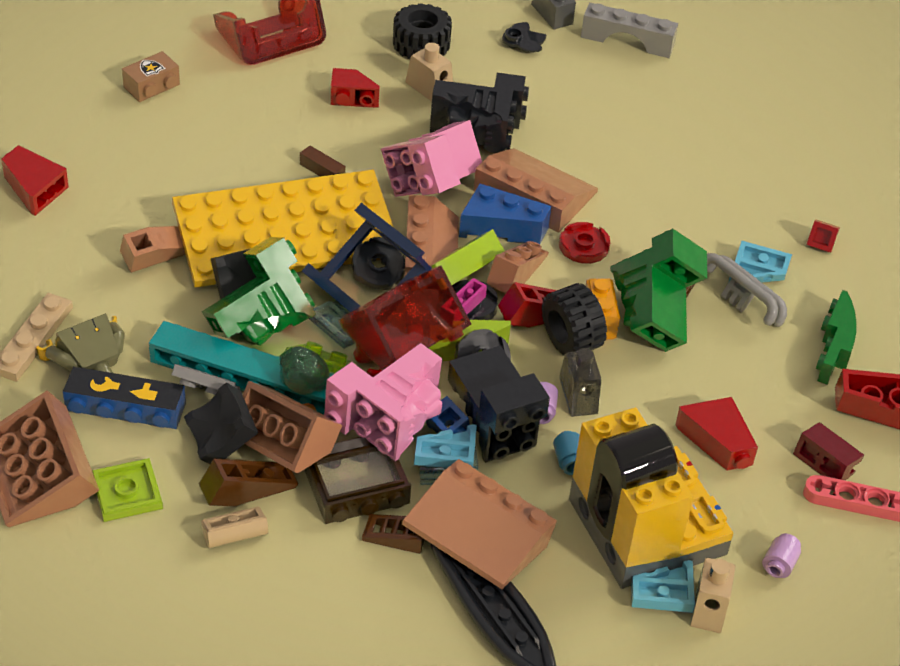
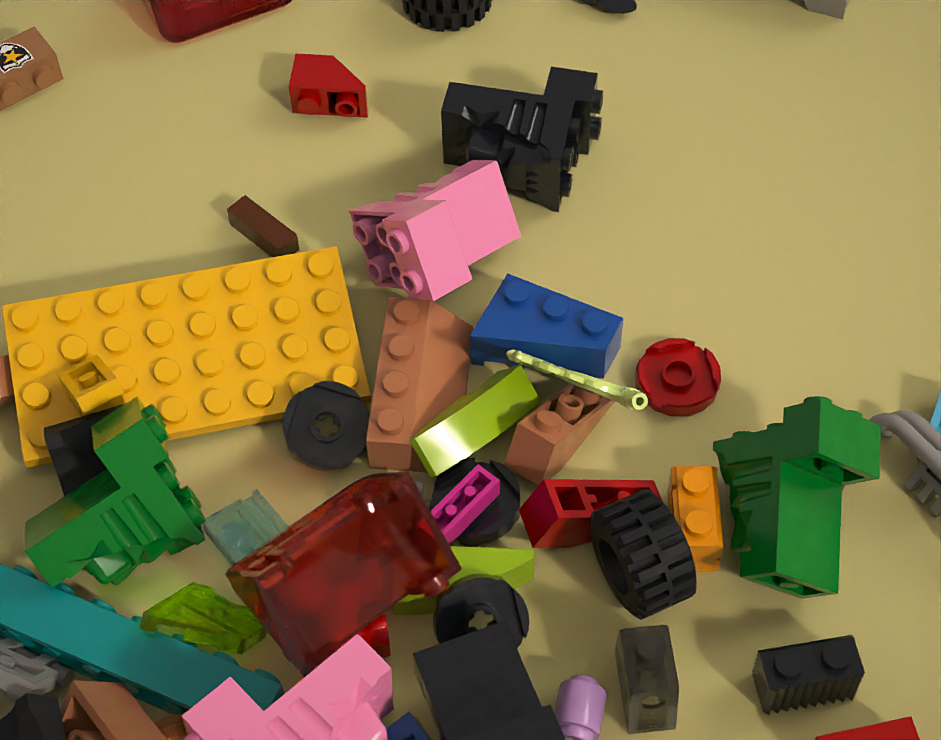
camera: 10 degrees right, 10 degrees up
(237, 237) = (92, 386): none -> yellow slope
(303, 370) = (177, 671): clear green hair -> none
(386, 231) = (247, 475): dark blue piece -> none
(427, 67) = (449, 55): tan torso -> none
(513, 233) = (626, 396): none -> yellowish green animal
(538, 181) = (604, 264): nougat slope -> none
(672, 382) = (808, 674): none -> black brick

